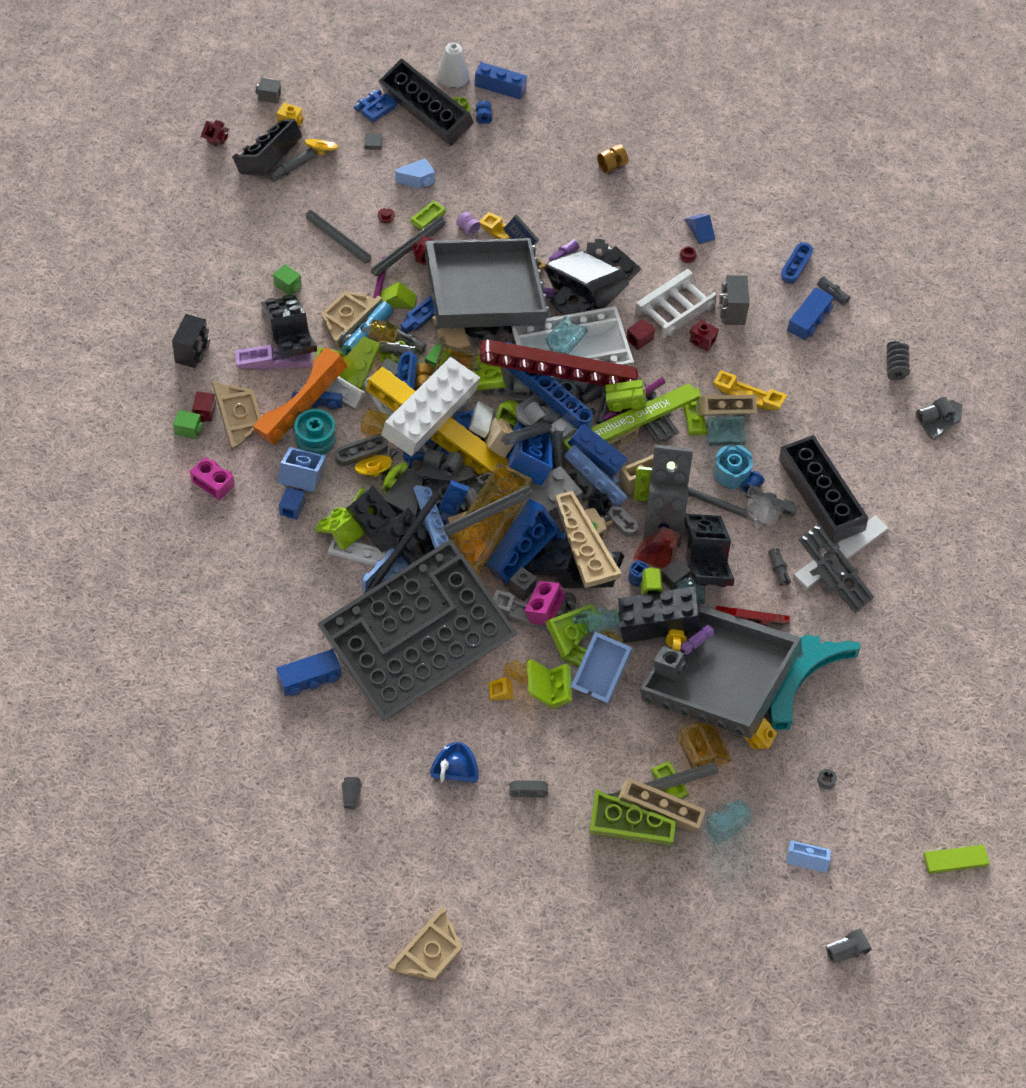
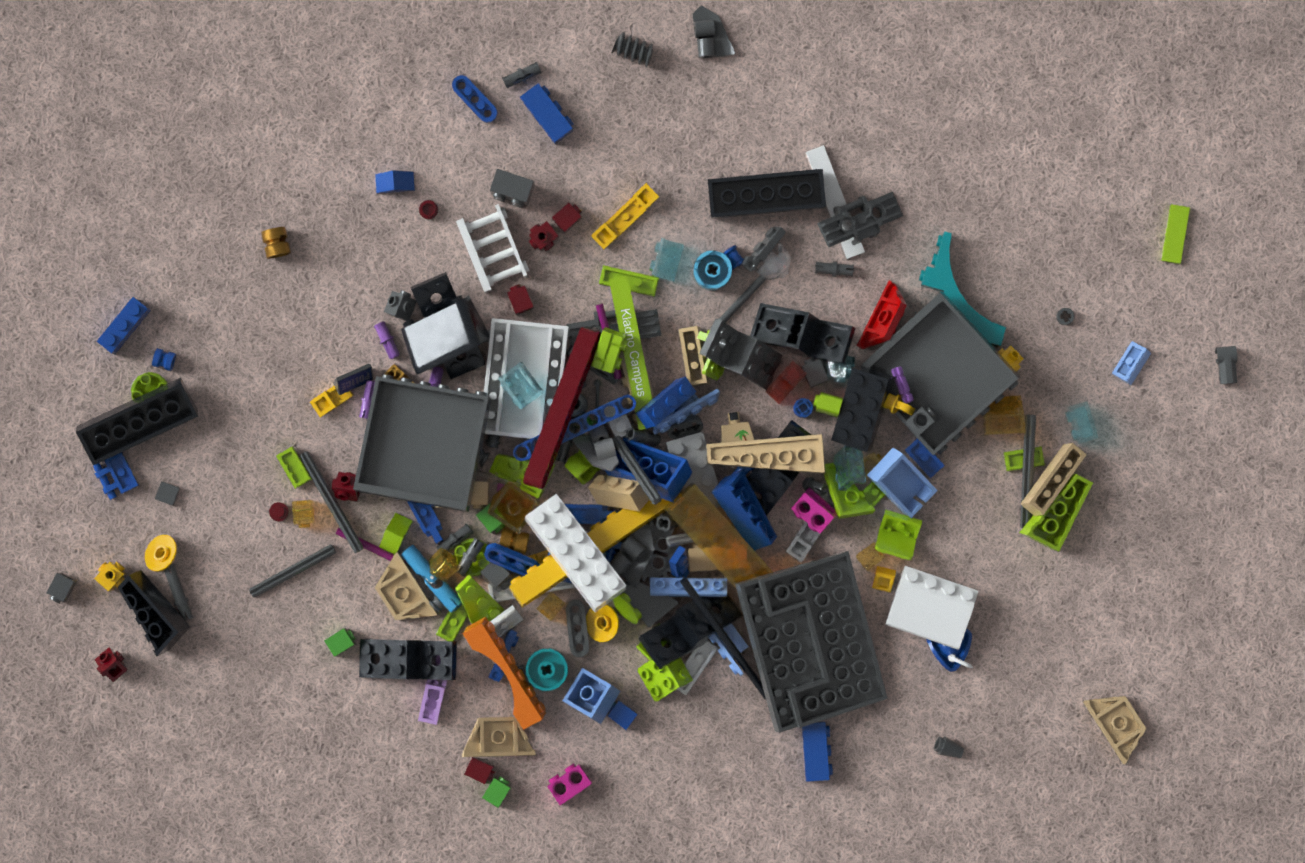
camera: 65 degrees left, 30 degrees up
(190, 341) = (398, 763): black brick -> none
(391, 229) = (303, 513): none -> clear yellow brick
(416, 174) = (234, 461): light blue slope -> none
(453, 67) = (98, 377): white cone -> none
(467, 223) = (315, 431): lavender wheel -> none
(481, 419) = (584, 500): white tile -> none
(488, 511) = (717, 538): dark grey axle -> none
(489, 732) = (931, 607): none -> white slope
(522, 584) = (782, 522): dark grey brick -> none
(527, 788) = (994, 588): dark grey beam -> none
(600, 503) = (714, 417): black gear -> none
(621, 522) = (735, 395): light grey beam -> none
(630, 694) = (926, 461): none -> blue plate
(726, 405) = (641, 249): tan brick -> none
(728, 349) = (567, 217): none -> dark red brick

